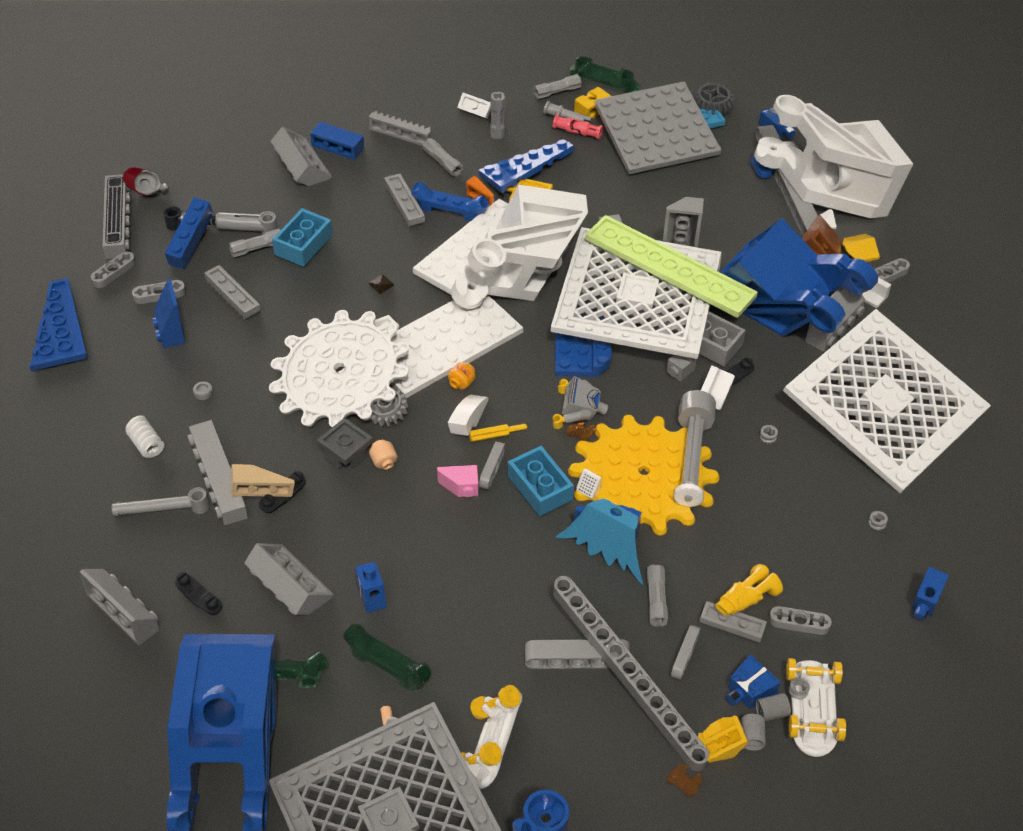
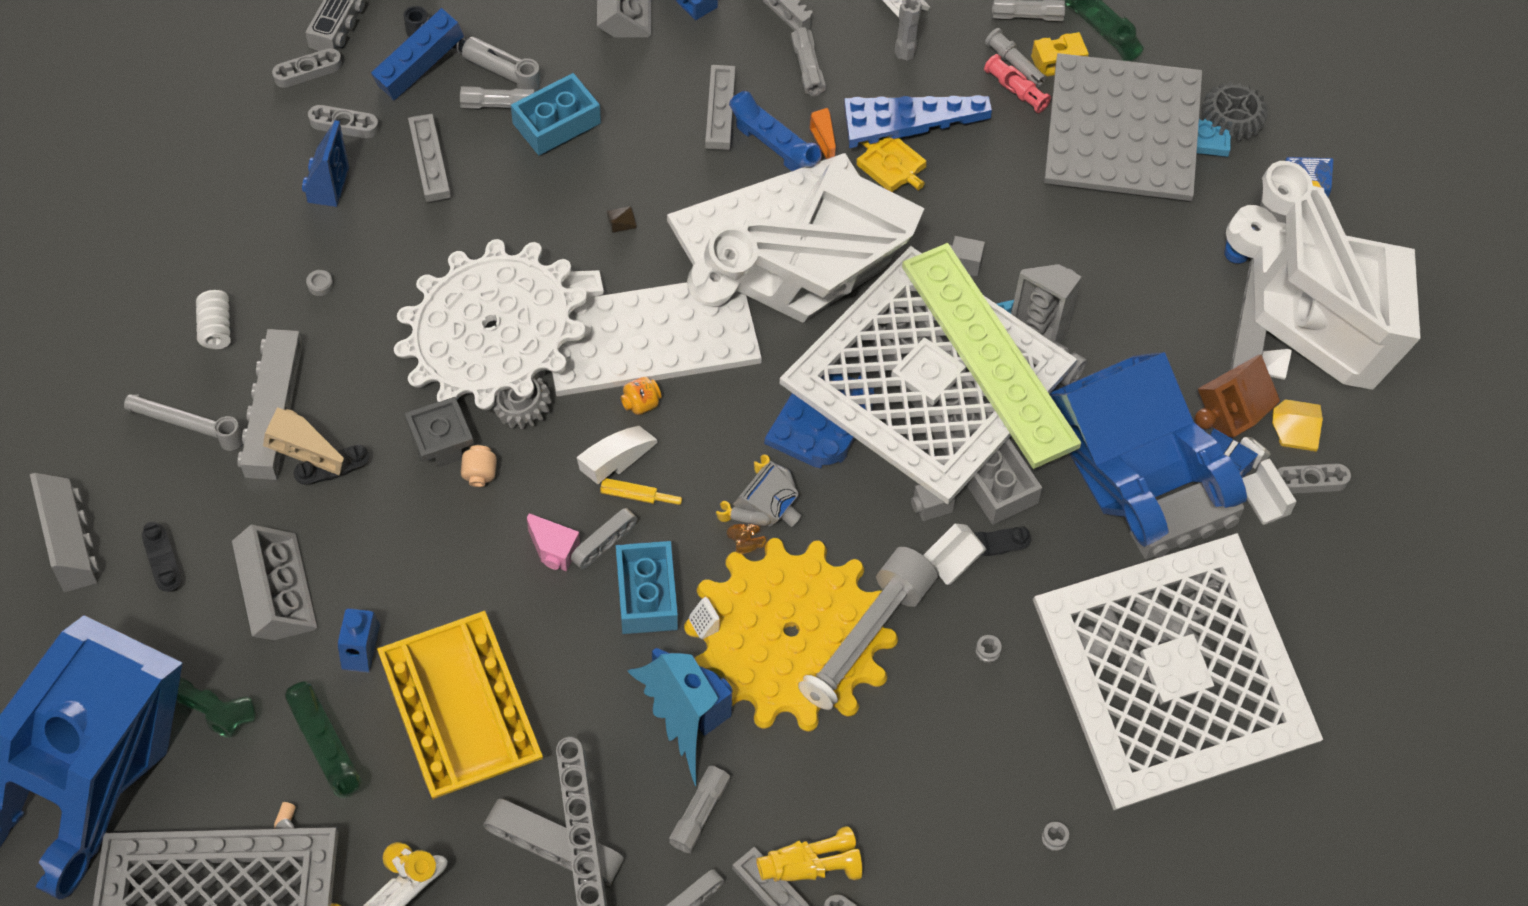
camera: 25 degrees right, 10 degrees up
(59, 331) = (197, 131): blue wing -> none
(464, 597) = (459, 704): none -> yellow slope

